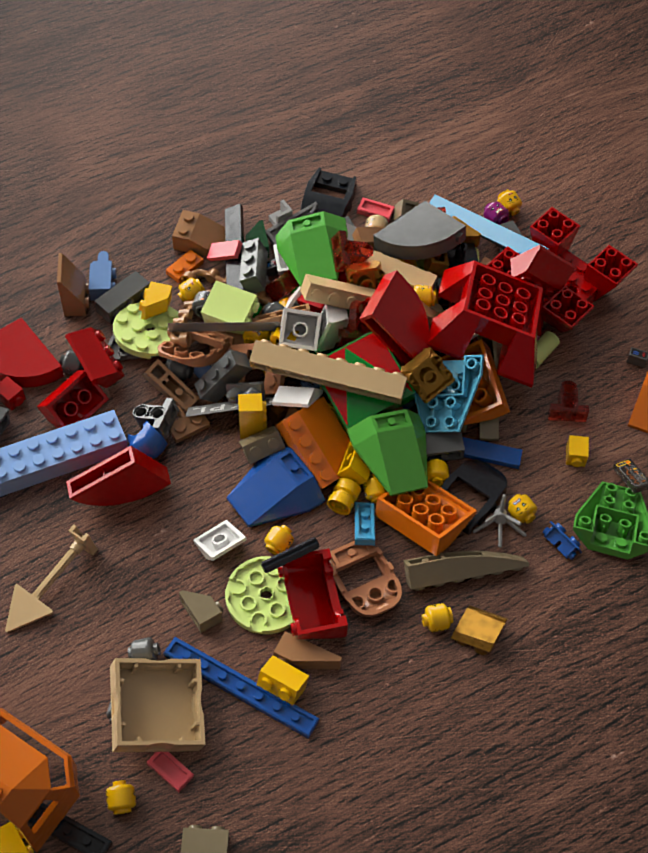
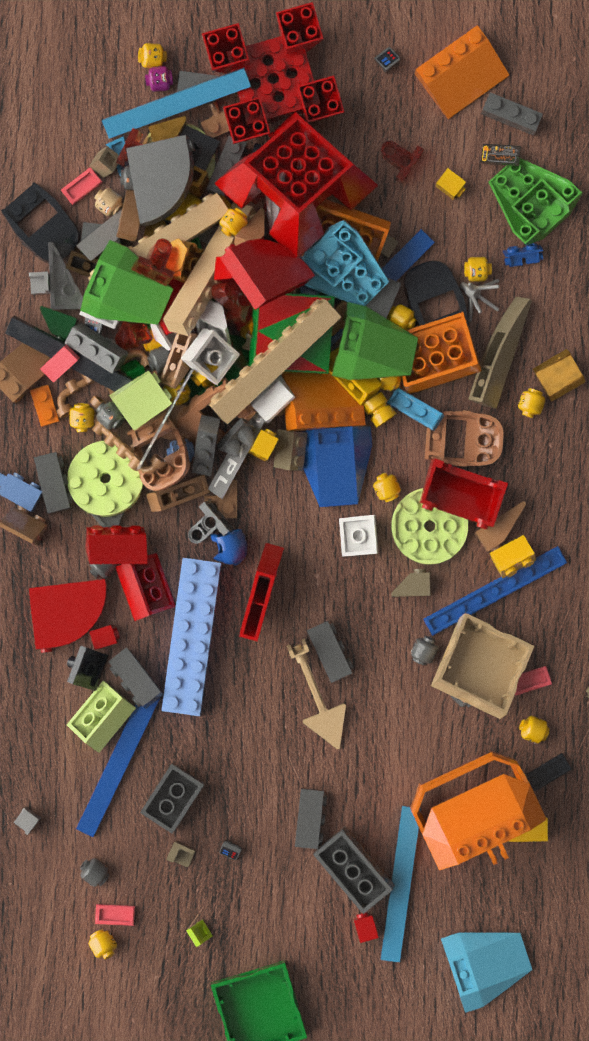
camera: 55 degrees left, 30 degrees up
(96, 572) = (330, 651): none -> dark grey brick
(156, 300) = (81, 456): yellow slope -> none
(290, 555) = (425, 494): black axle -> none
(427, 374) = (326, 277): pearl gold slope -> none
(542, 269) = (277, 104): red slope -> none
(546, 346) = (331, 134): yellowish green pin -> none

